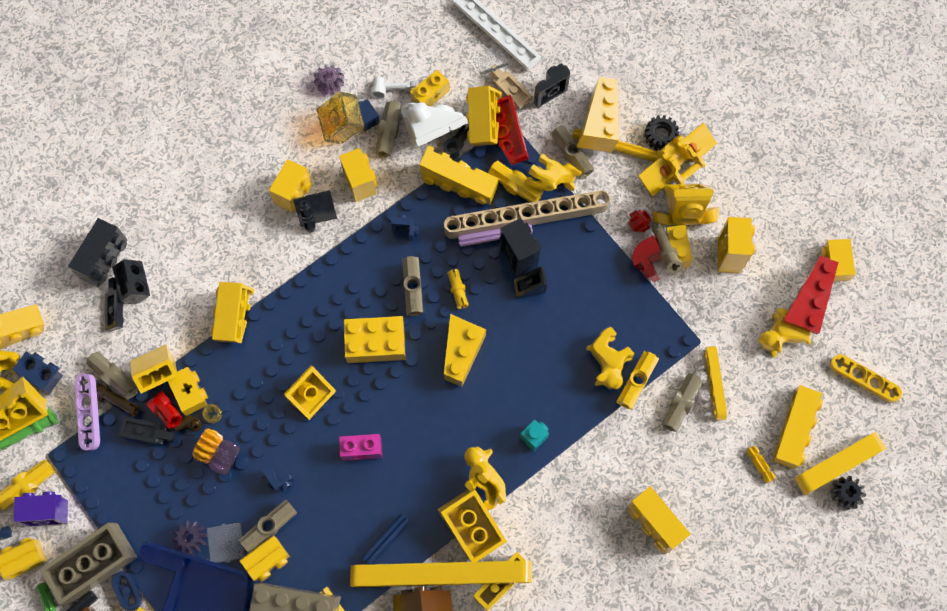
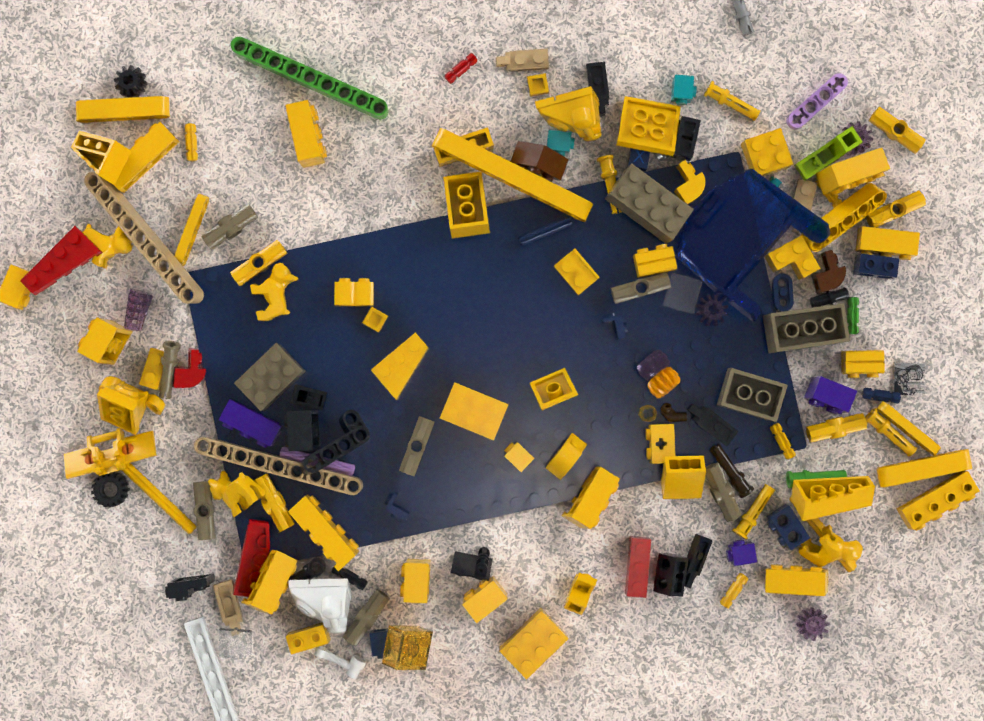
camera: 155 degrees left, 15 degrees up
(67, 296) = (734, 590): none -> yellow axle
(72, 330) = (741, 553): none -> dark purple brick
(72, 447) = (782, 441): none -> yellow axle
(77, 364) = (749, 519): none -> yellow pin
(83, 412) = (761, 467): lavender beam -> none
(98, 253) = (690, 616): black brick -> none
(117, 473) = (752, 395): none -> dark tan brick
(163, 407) = (689, 438): red piece -> none
(164, 275) = (638, 566): none -> red brick
(208, 230) = (579, 593): none -> yellow brick
(231, 171) = (533, 643): none -> yellow brick
(269, 339) = (566, 456): none -> yellow brick
(315, 319) = (518, 456): none -> yellow brick
(332, 73) = (393, 692): clear purple gear -> none
(337, 514) = (576, 271): none -> yellow plate
(360, 447) = (530, 318): dark pink brick -> none
(415, 155) = (352, 577): none -> black axle
(458, 289) = (376, 424): yellow pin -> none
(484, 476) = (435, 239): yellow animal -> none
(486, 248) = (334, 448): none -> black beam
(506, 381) = (375, 319): none -> yellow tile
(535, 434) = (373, 257): teal brick -> none
(536, 393) = (354, 293): none -> yellow brick
(570, 238) = (250, 423): none -> dark purple brick
(573, 284) = (270, 377): none -> dark tan brick
(600, 123) = (159, 528): yellow wedge -> none
(639, 221) = (177, 411): red gear -> none
(693, 579) = (301, 74): none -> bright green beam
(730, 299) = (136, 298): none -> clear purple slope
(752, 352) = (151, 242): none -> tan beam
(832, 405) = (101, 154): none -> yellow wedge
(864, 381) = (58, 170): yellow beam -> none

